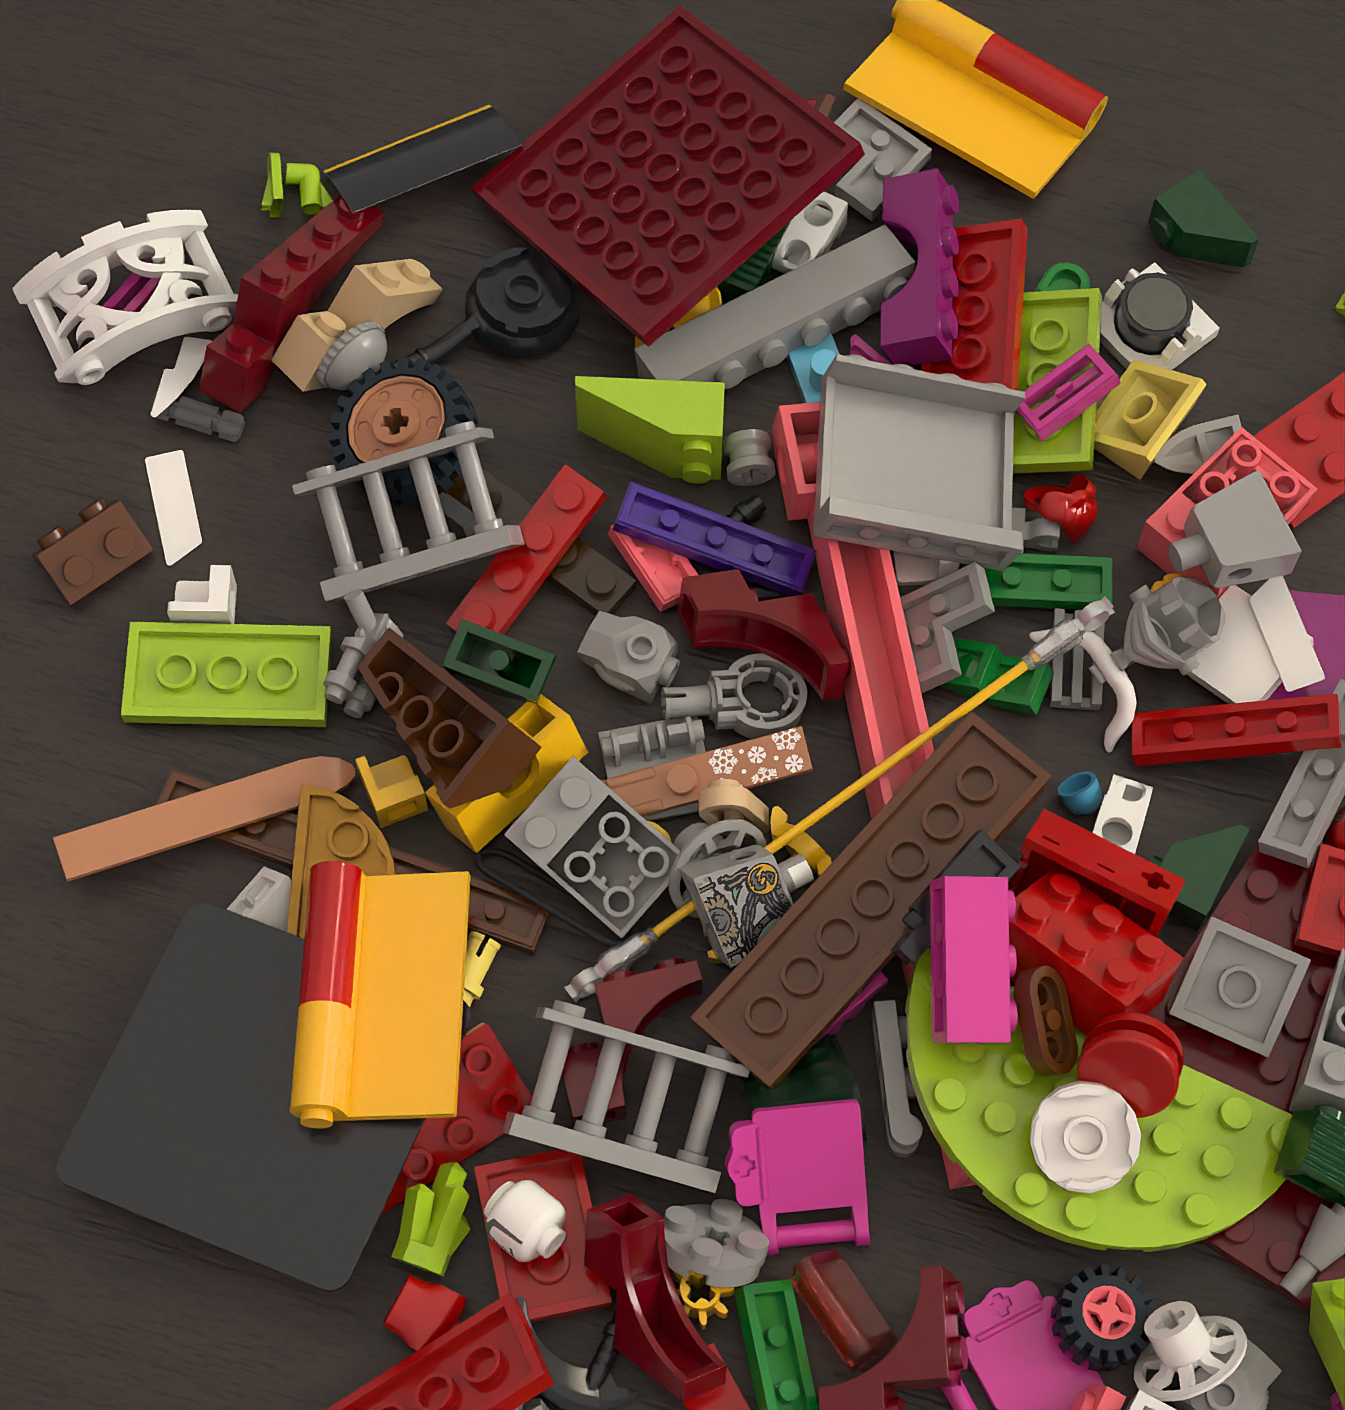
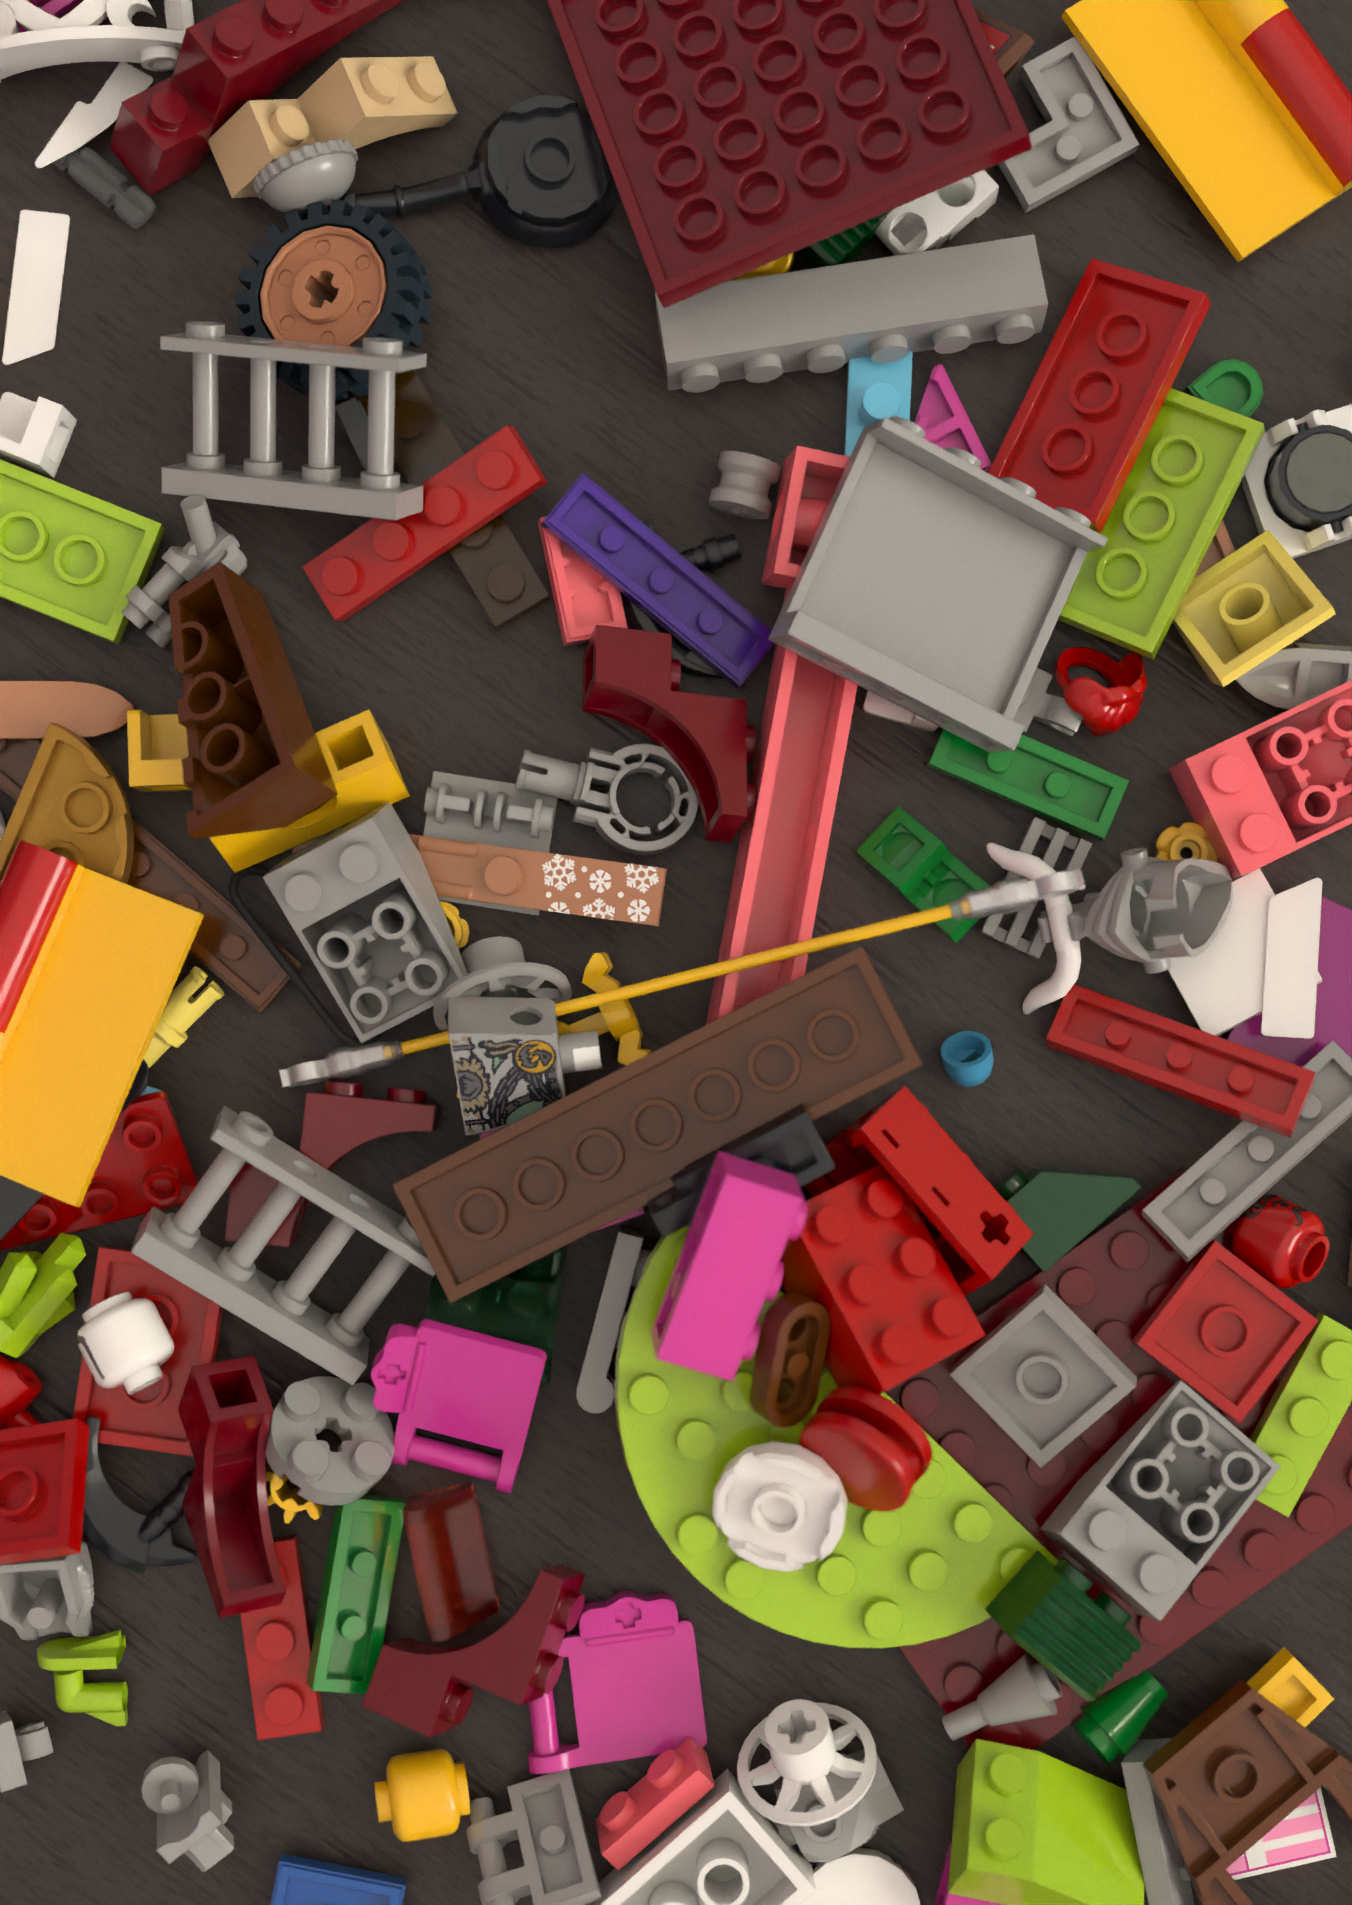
camera: 15 degrees right, 20 degrees up
(498, 663) = (333, 656): dark green slope -> none
(630, 654) = (506, 688): light grey hand -> none
(656, 422) = (658, 412): lime slope -> none
(727, 800) = (548, 935): tan plate -> none
(920, 317) = (1024, 382): magenta arch -> none
(935, 613) = (884, 775): light grey plate -> none
(1071, 397) = (1170, 572): dark pink tile -> none
(1114, 1302) = (749, 1690): black wheel -> none
(1123, 812) = (998, 1112): white leg -> none
(1237, 536) = (1282, 832): light grey torso -> none

